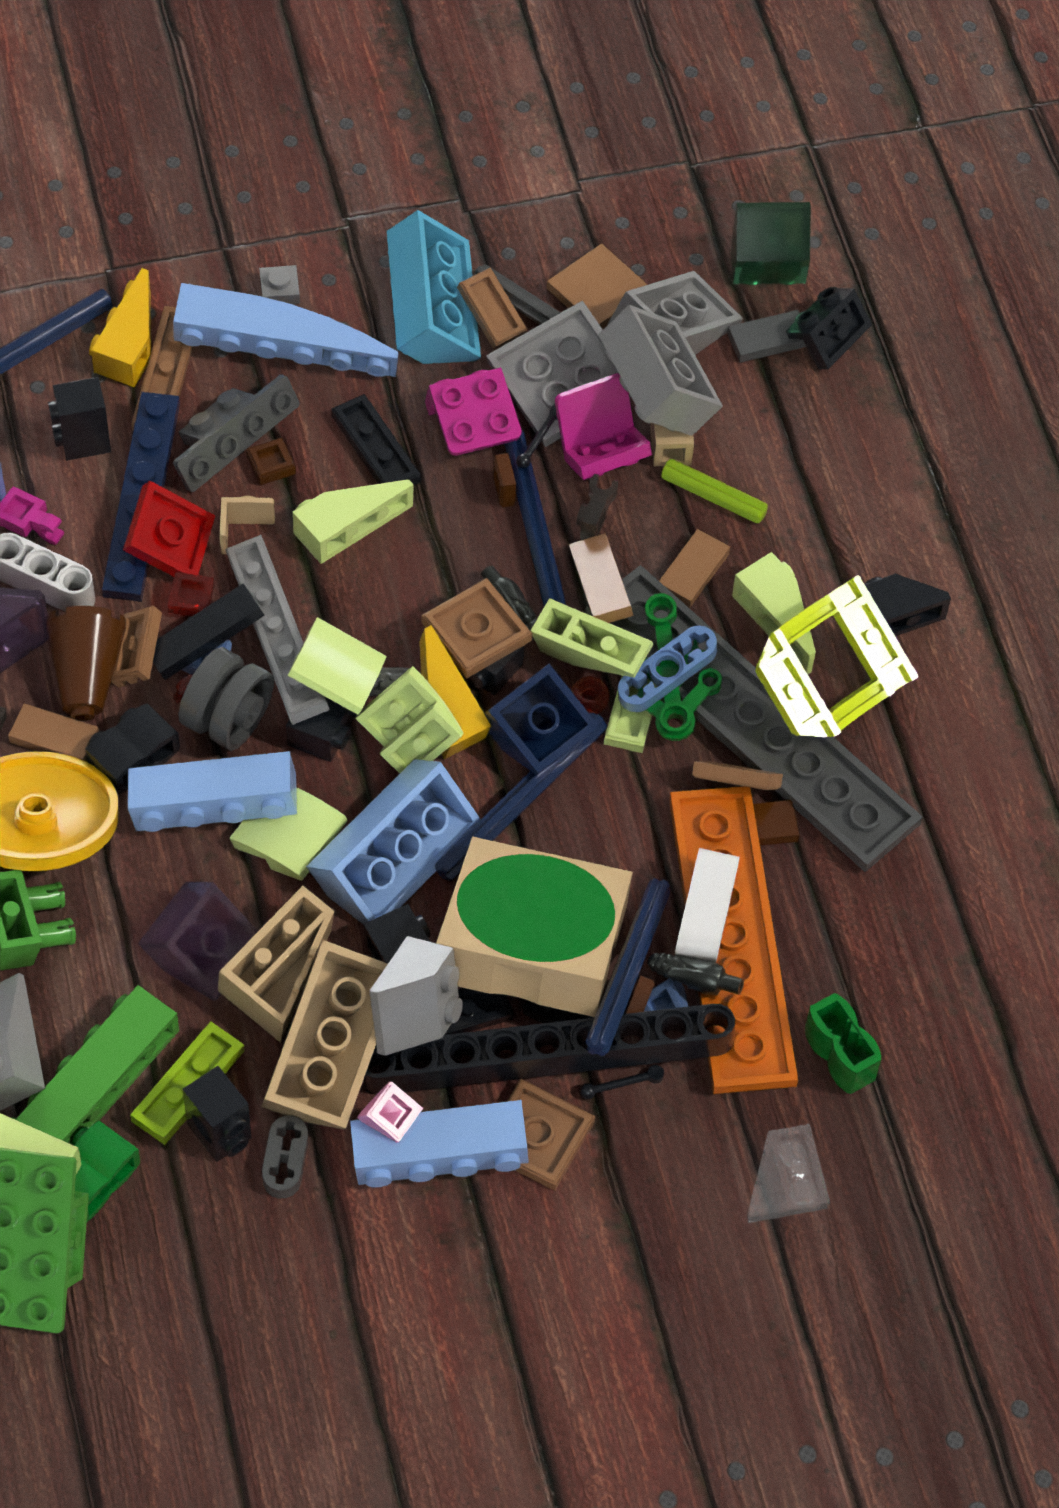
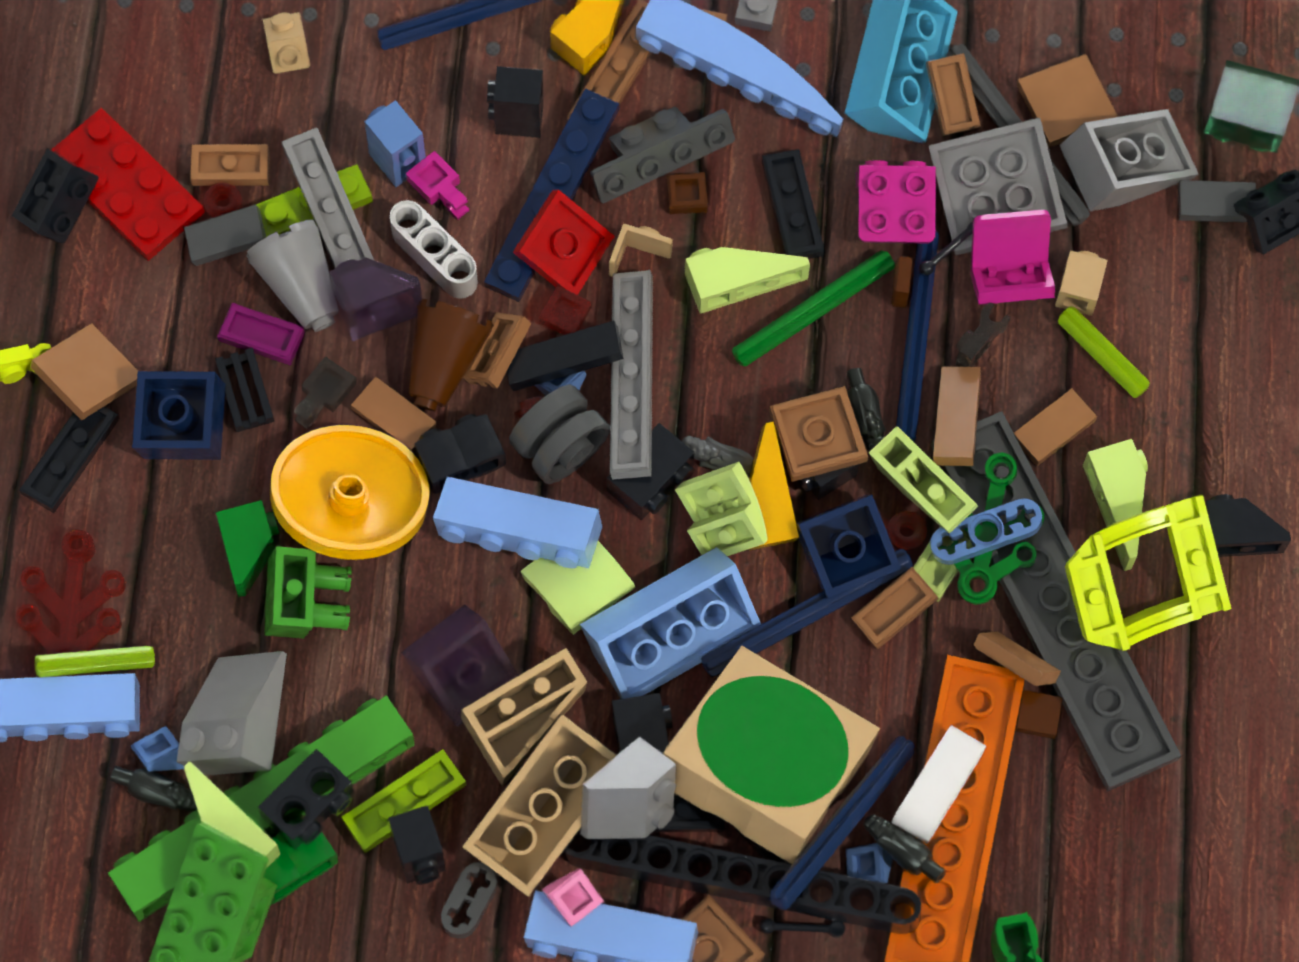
camera: 20 degrees right, 10 degrees up
(83, 1098) = (298, 793): none -> black brick
(337, 666) = (671, 435): yellowish green slope -> none
(428, 528) = (813, 308): none -> green axle
(604, 767) = (894, 608): none -> medium nougat tile
(639, 995) = (843, 854): reddish brown tile -> none
(659, 370) = (1084, 221): light grey brick -> none

